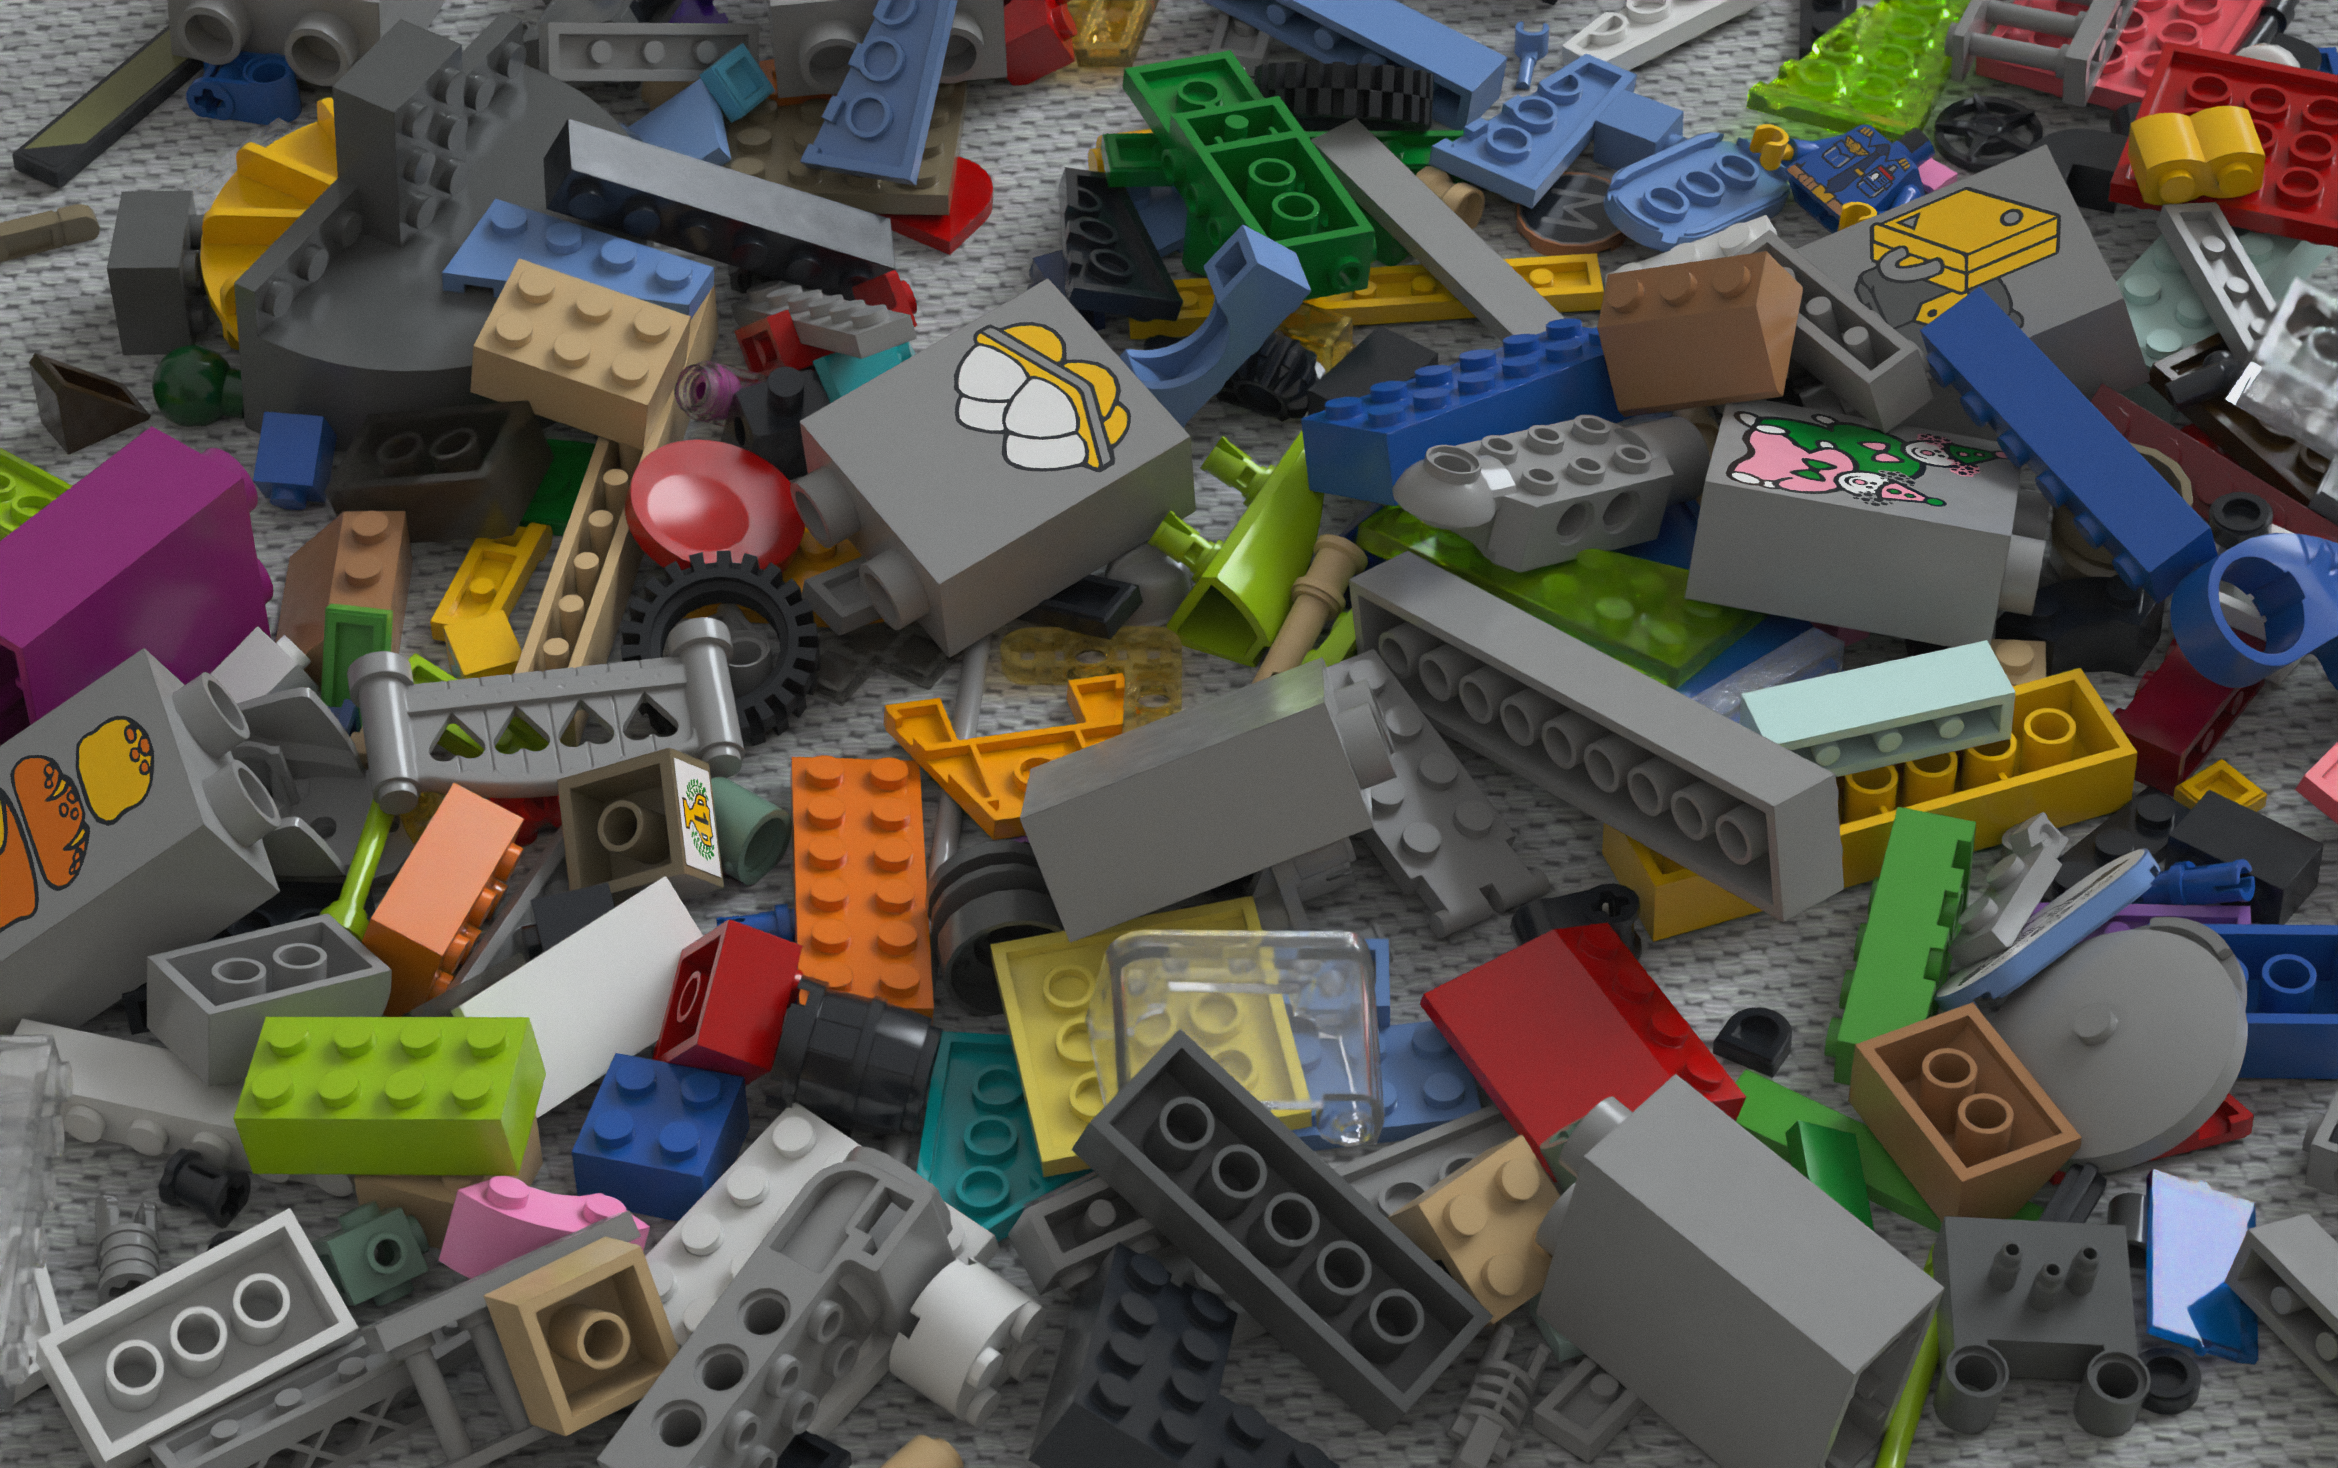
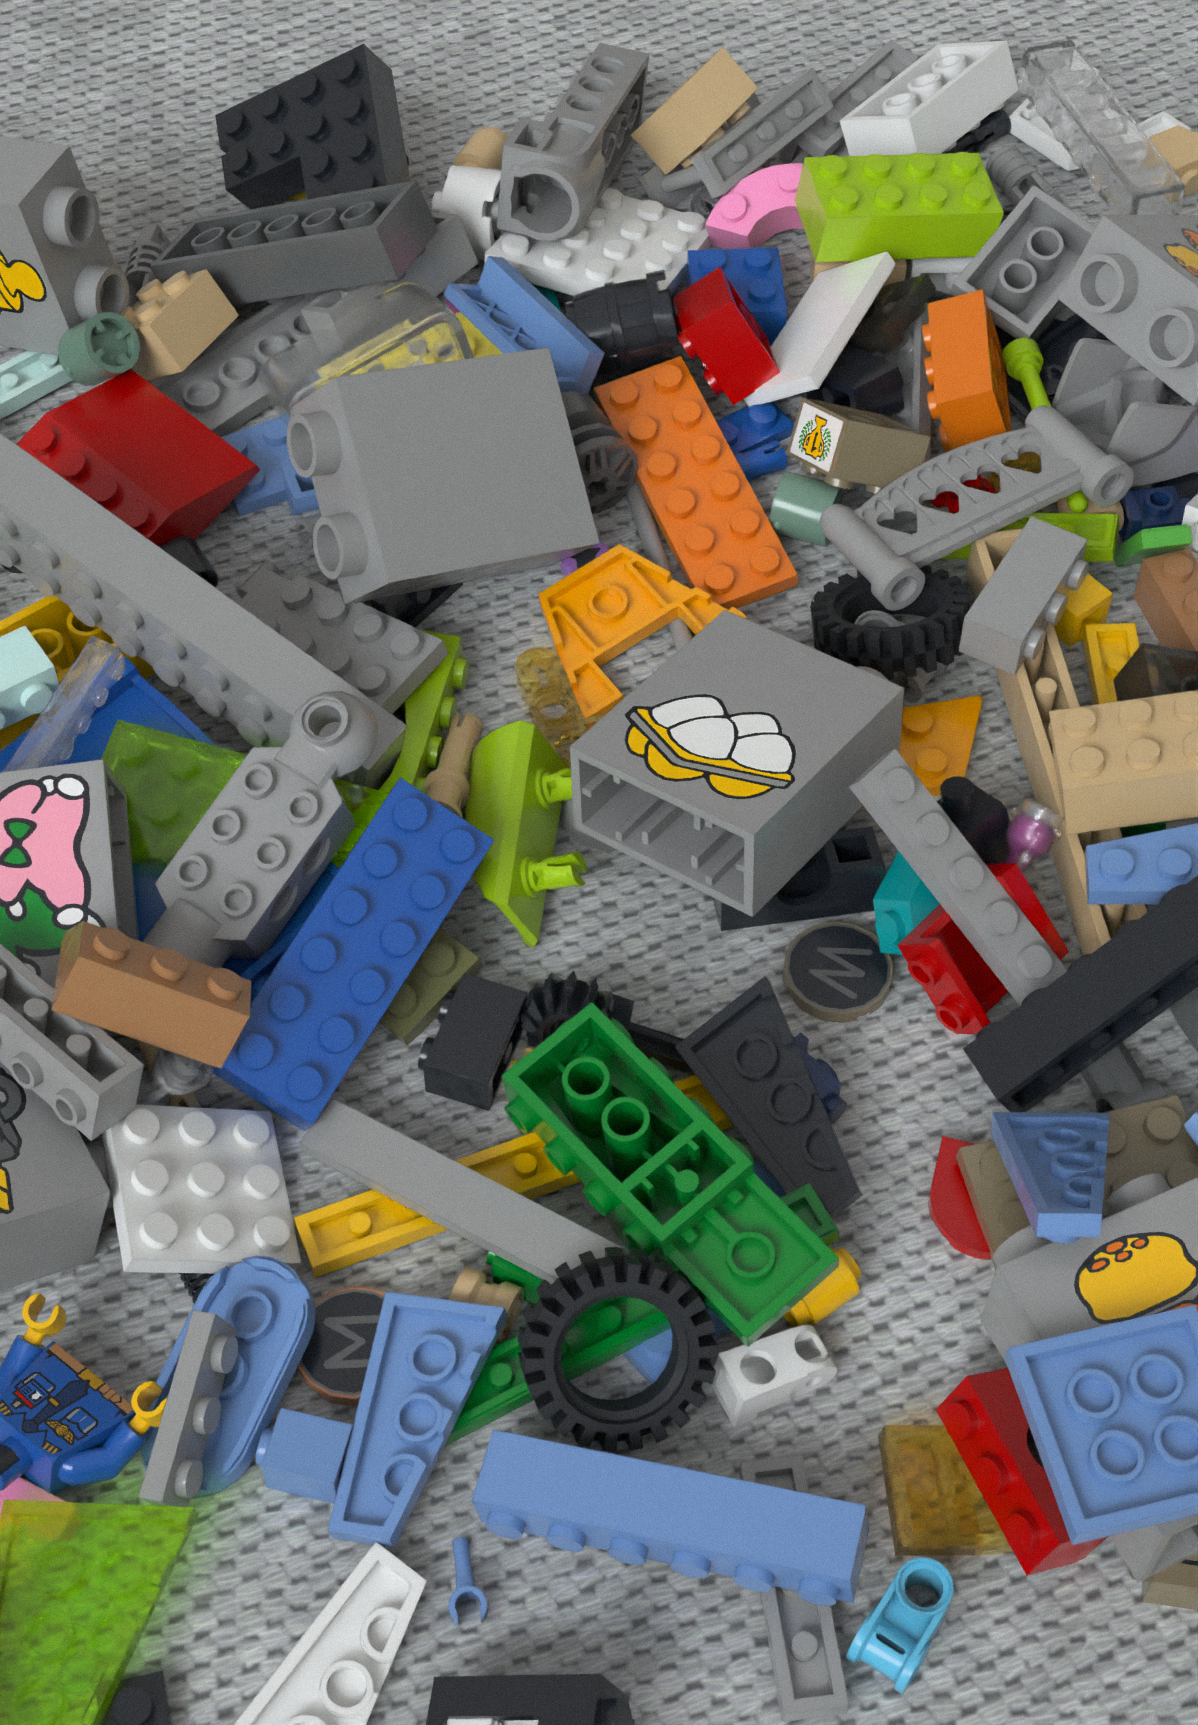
camera: 160 degrees right, 10 degrees up
(572, 574) = (1024, 596): none -> light grey brick
(709, 501) = (969, 722): red piece -> none
(978, 1076) = (522, 319): none -> medium blue fence
(1254, 292) = (592, 949): medium blue arch -> none
(1727, 151) = (190, 1411): none -> light grey plate

